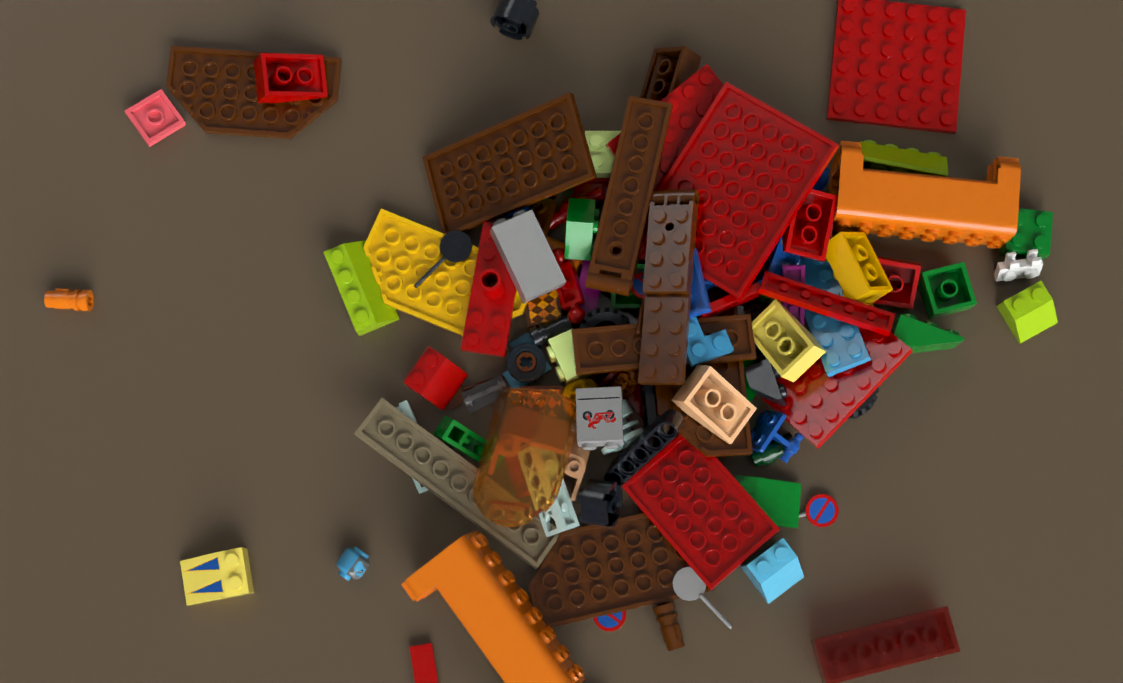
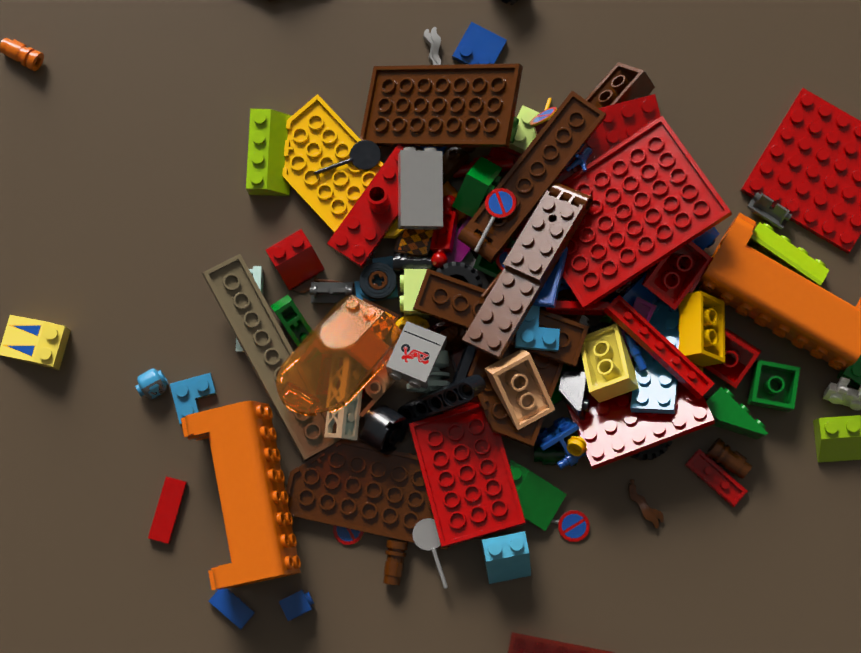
camera: 25 degrees right, 0 degrees up
(390, 556) = (188, 390): none -> dark azure plate
(469, 107) = (434, 42): none -> light grey hair
(515, 93) = (479, 46): none -> blue plate
(611, 236) = (499, 204): none -> piece
(612, 131) = (545, 115): none -> piece
(668, 158) = (581, 159): none -> blue bar
(792, 433) = (576, 445): none -> yellow plate
(806, 318) = (635, 353): none -> blue piece
(854, 125) = (761, 207): none -> dark grey hinge
(887, 465) = (647, 512): none -> reddish brown hair
(933, 402) = (716, 478): none -> red tile
(939, 379) = (731, 460): none -> reddish brown axle

